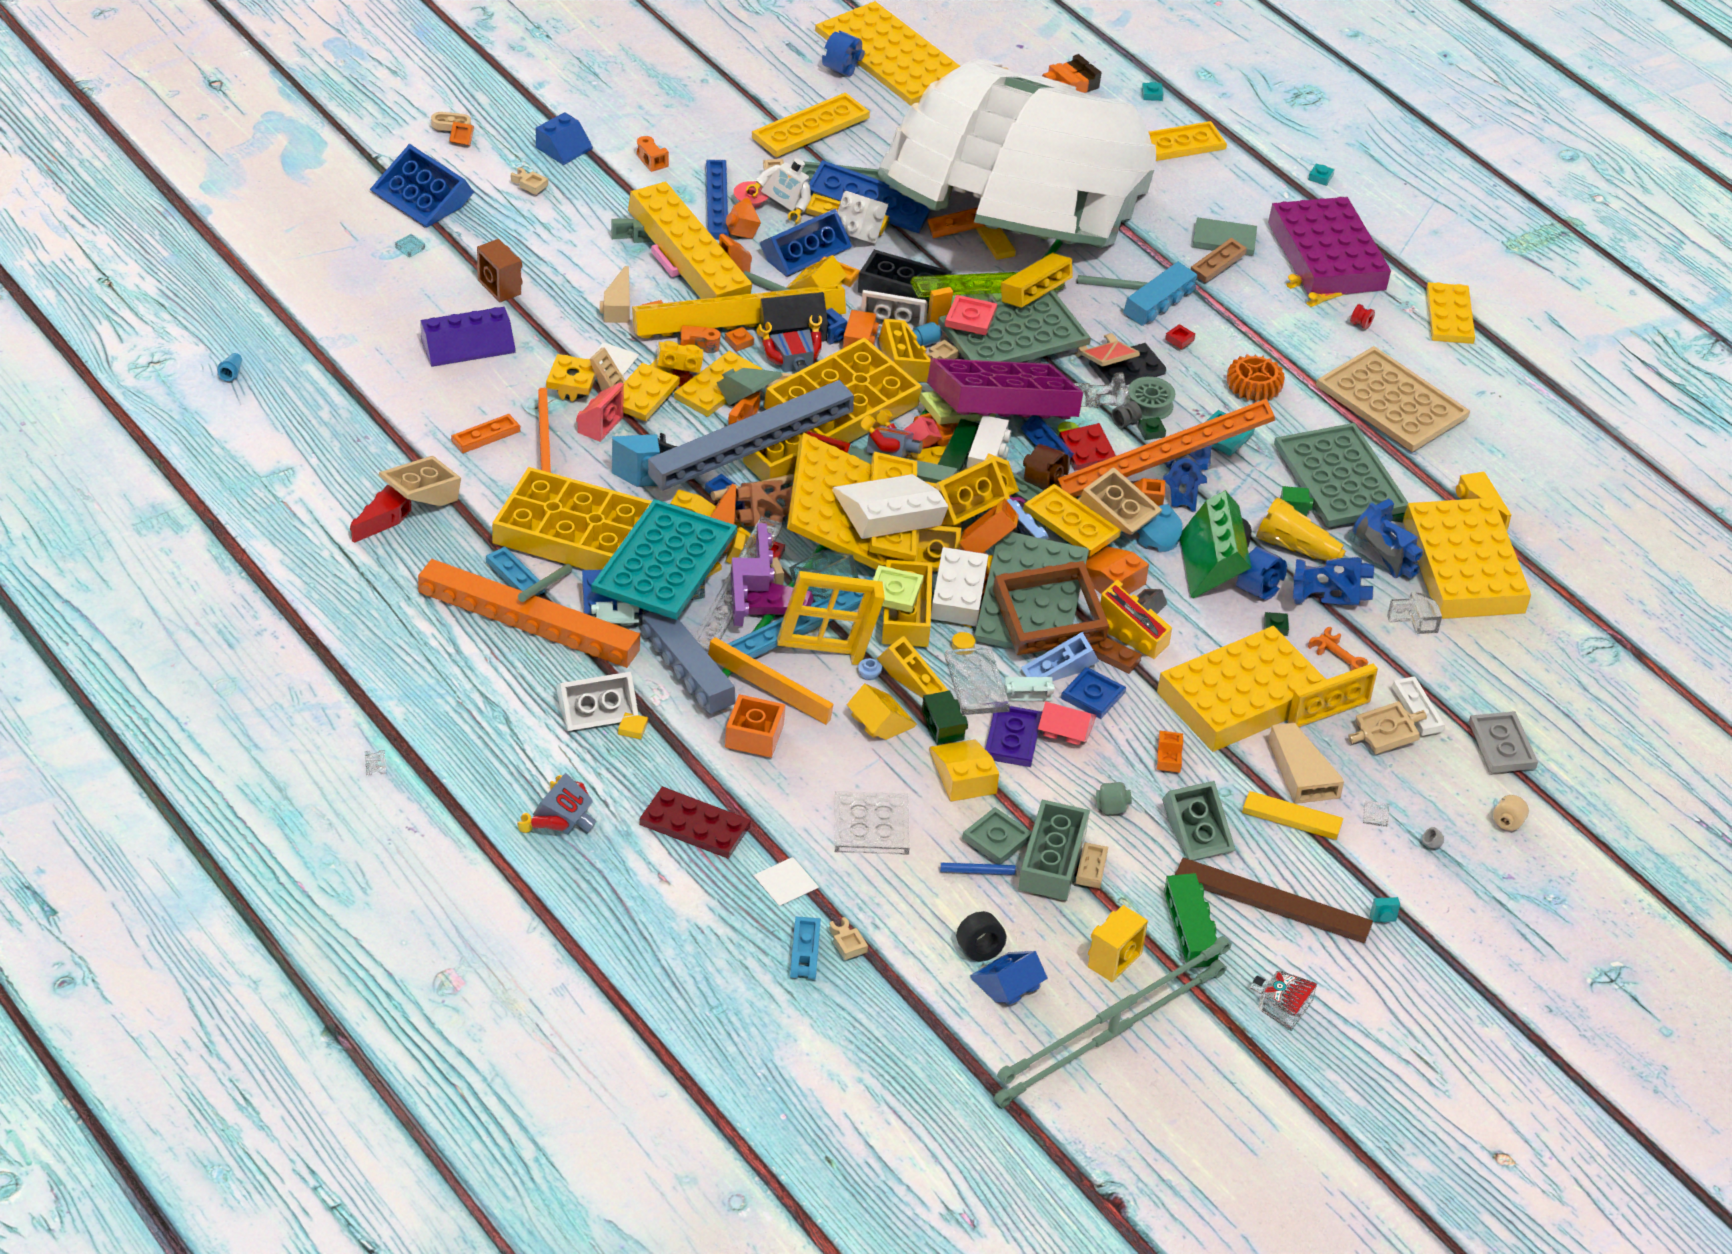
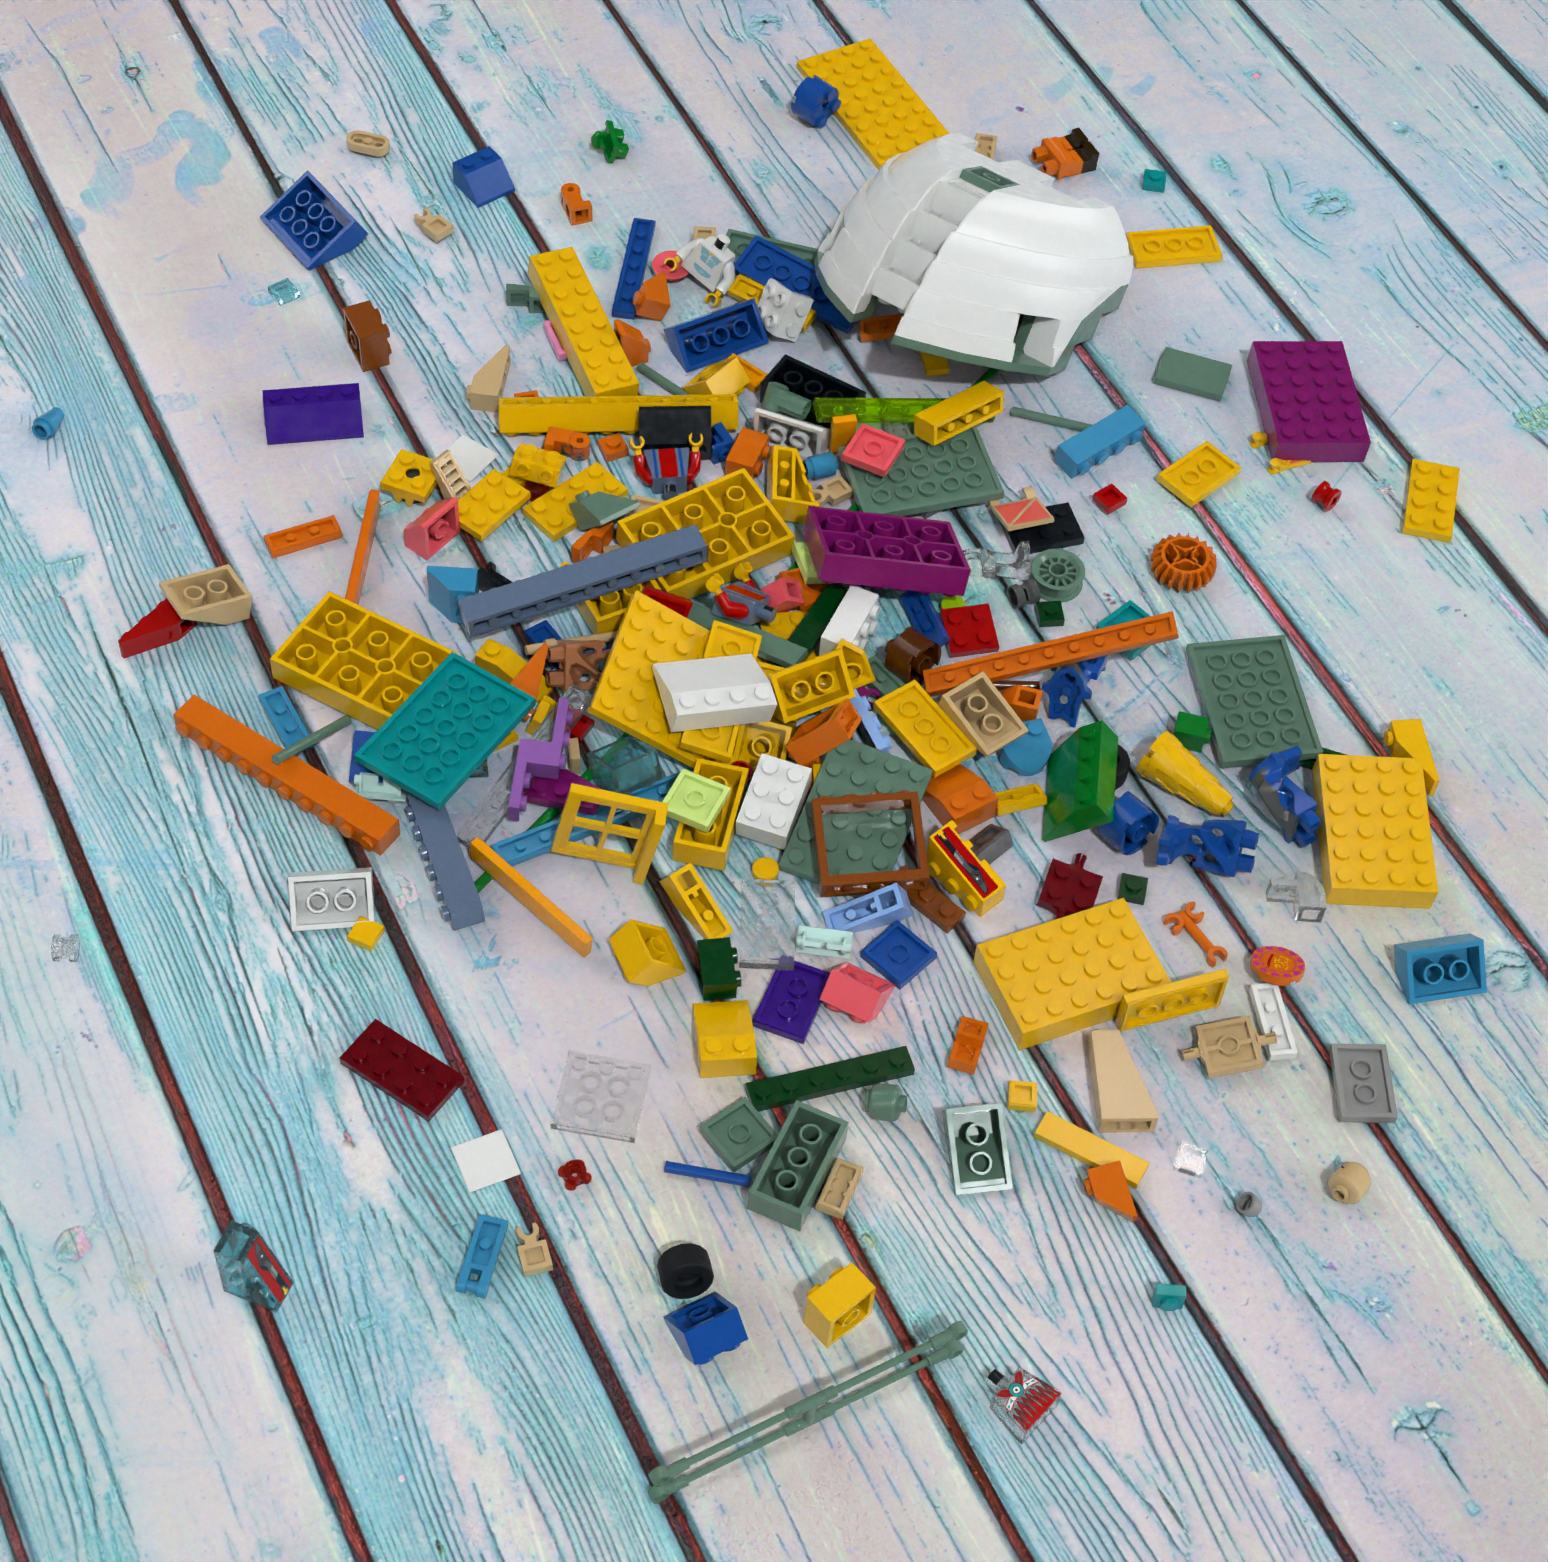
camera: 10 degrees right, 10 degrees up
(461, 133) = (375, 159): orange plate -> none
(561, 808) = (254, 1035): torso -> none
(615, 971) = (250, 1267): none -> clear light blue wedge
(669, 102) = (610, 142): none -> green hips
(755, 725) = (497, 955): orange brick -> none
(810, 124) = (760, 185): yellow plate -> none
(865, 880) = (574, 1166): none -> clear red plate
(869, 669) = (647, 897): light blue plate -> none
(880, 282) = (780, 399): none -> sand green piece
(1062, 787) = (830, 1078): none -> dark green plate
(1165, 567) = (1020, 799): none -> yellow tile
(1190, 916) = (937, 1277): green brick -> none
(1218, 260) = (1177, 405): medium nougat plate -> none
(1222, 626) = (1069, 888): none -> dark red plate
(1226, 783) = (1022, 1096): none -> yellow tile
(1250, 310) = (1198, 474): none -> yellow plate
(1278, 901) = (1042, 1263): reddish brown tile -> none
(1318, 839) = (1111, 1189): none -> orange slope
(1321, 174) = (1322, 305): teal plate -> none
(1393, 398) = (1337, 607): tan plate -> none
(1411, 664) = (1277, 965): none -> orange tile
(1546, 652) = (1441, 968): none -> dark azure slope

